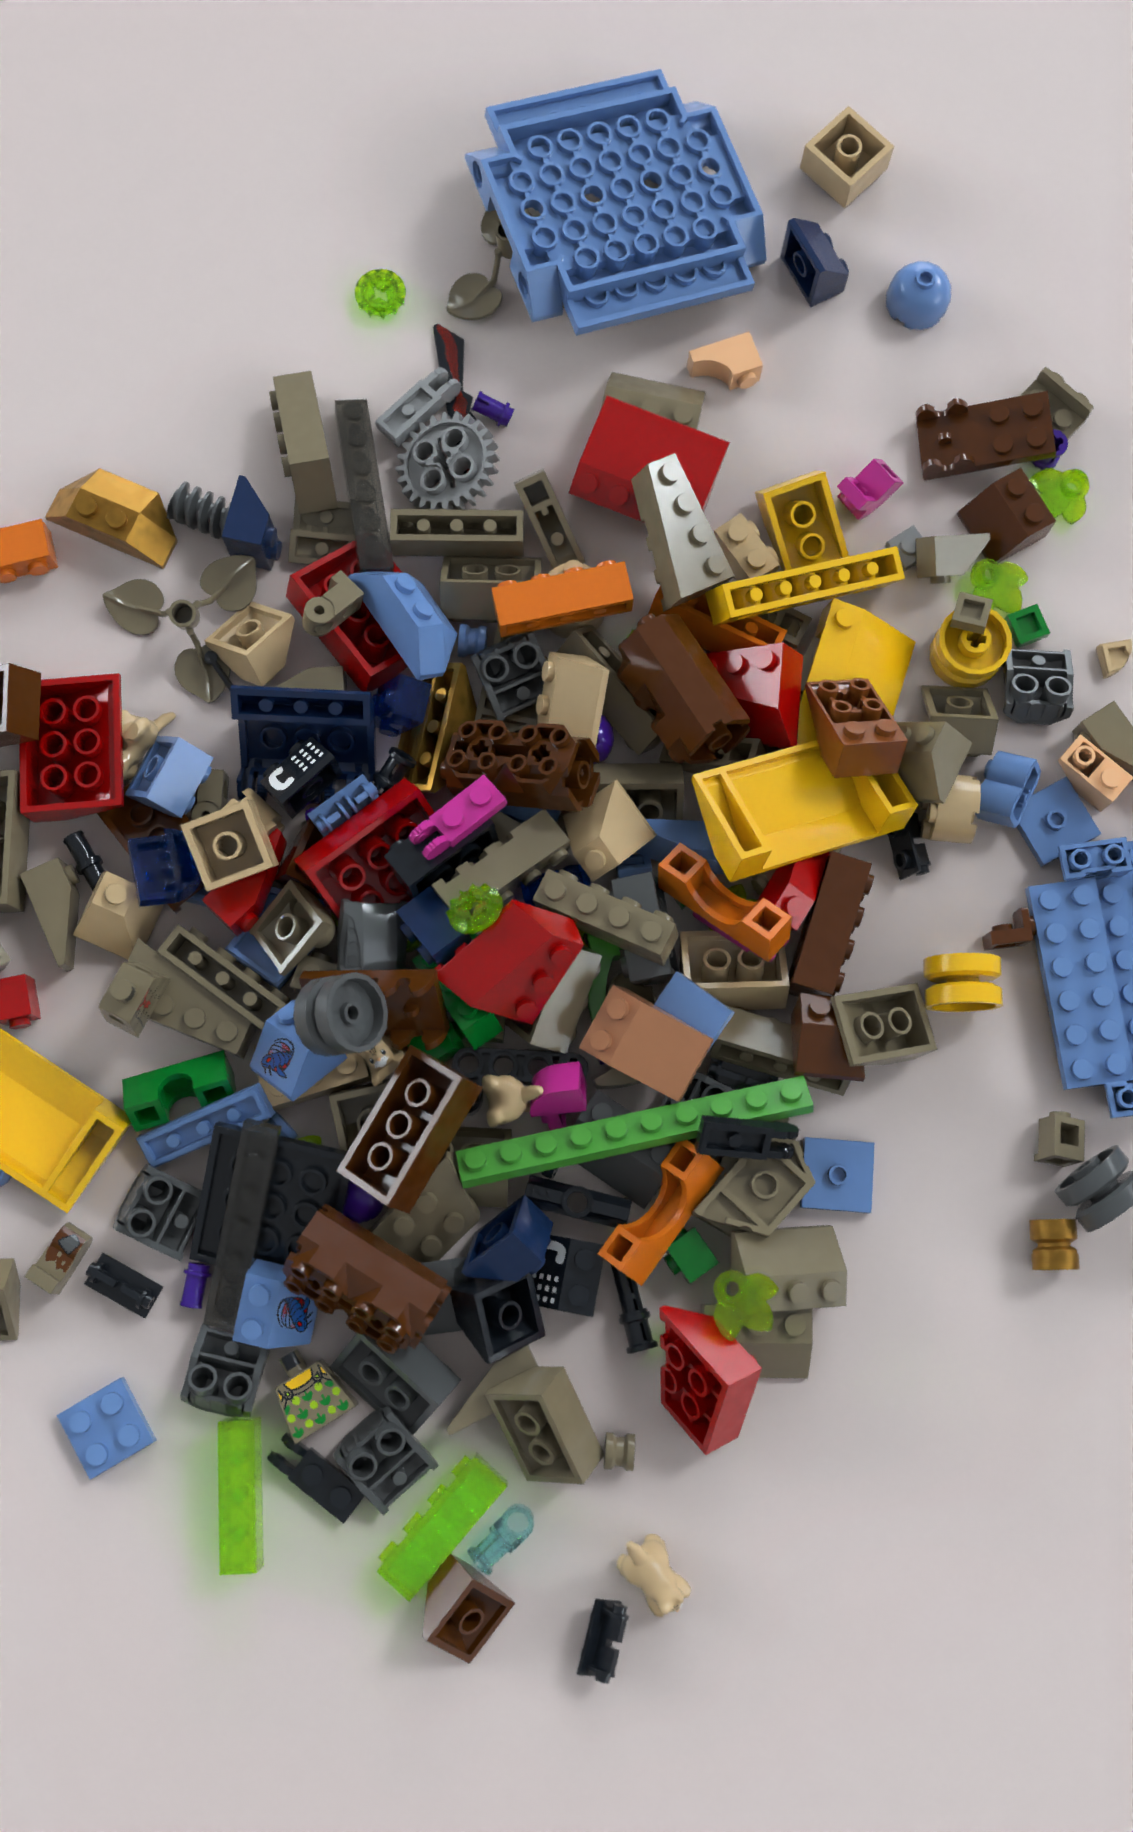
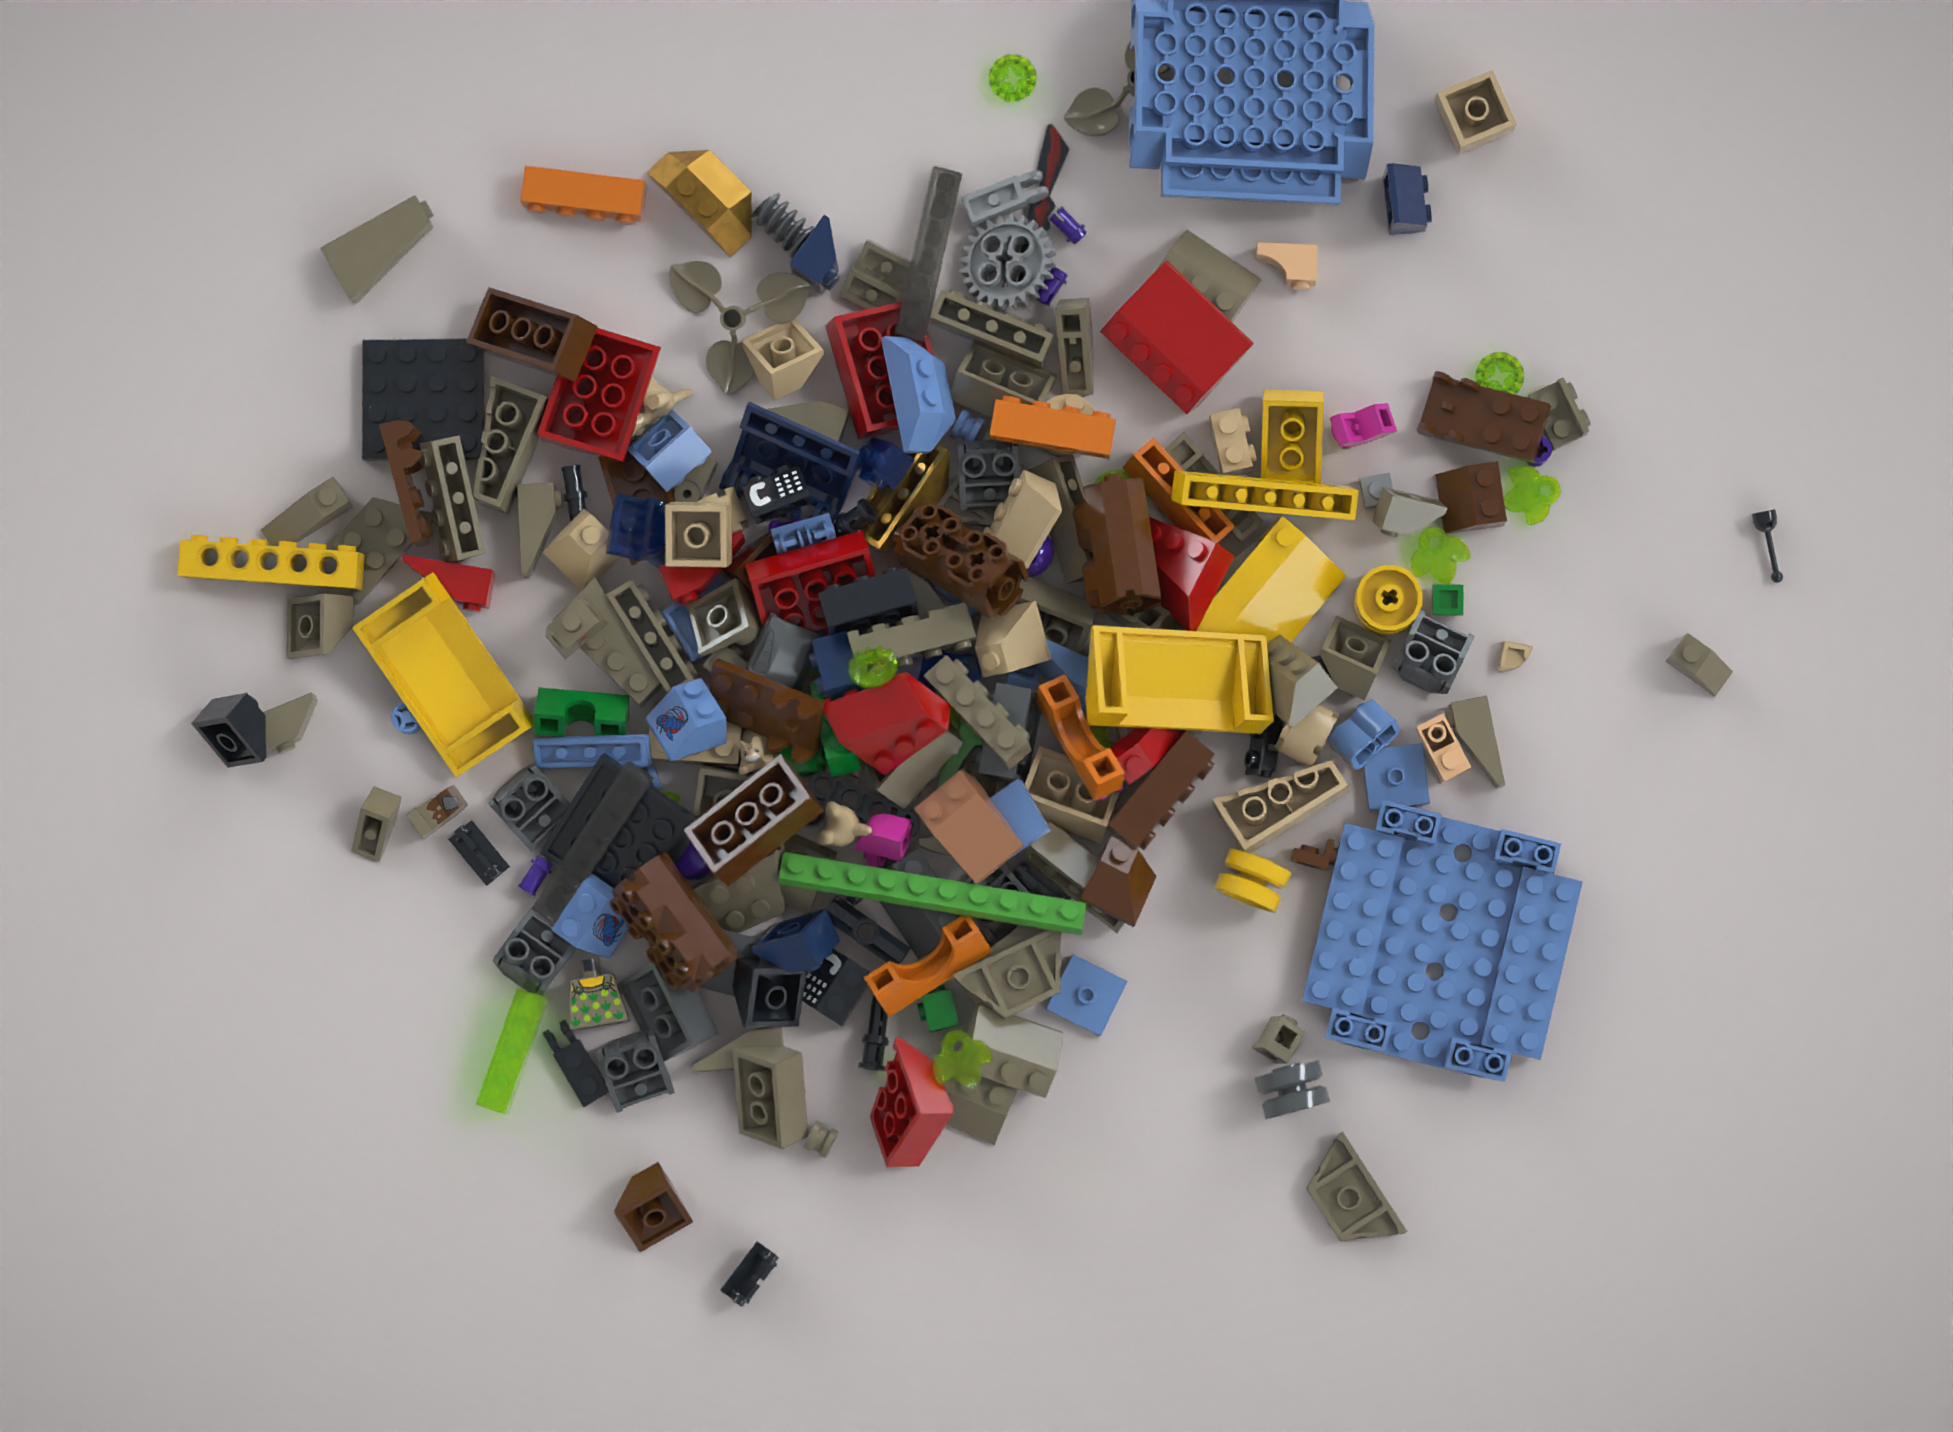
camera: 30 degrees right, 5 degrees up
(106, 1428) = (425, 959): medium blue plate -> none
(211, 659) = (741, 357): black hinge -> none
(303, 441) = (892, 194): dark tan wedge -> none
(334, 607) = (854, 363): dark tan leg -> none
(340, 1014) = (734, 709): dark grey wheel -> none
(442, 1526) = (659, 1139): clear neon green brick -> none
(459, 817) = (891, 586): dark pink hinge -> none
(501, 479) = (1053, 285): none -> dark purple pin
(501, 1539) = (701, 1168): clear light blue connector -> none
(650, 1570) = (808, 1237): tan animal -> none
(678, 534) = (1171, 413): wedge -> none
(744, 1138) = (1016, 933): black hinge -> none
(854, 728) = (1248, 635): dark orange slope -> none
(884, 1025) = (1169, 889): dark tan slope -> none
(919, 295) = (1487, 264): medium blue cylinder -> none
(945, 902) = (1274, 807): none -> tan wedge
(971, 613) = (1392, 575): dark tan plate -> none
(978, 382) = (1505, 363): none -> clear neon green gear
(1054, 1244) = (1236, 1119): pearl gold wheel -> none

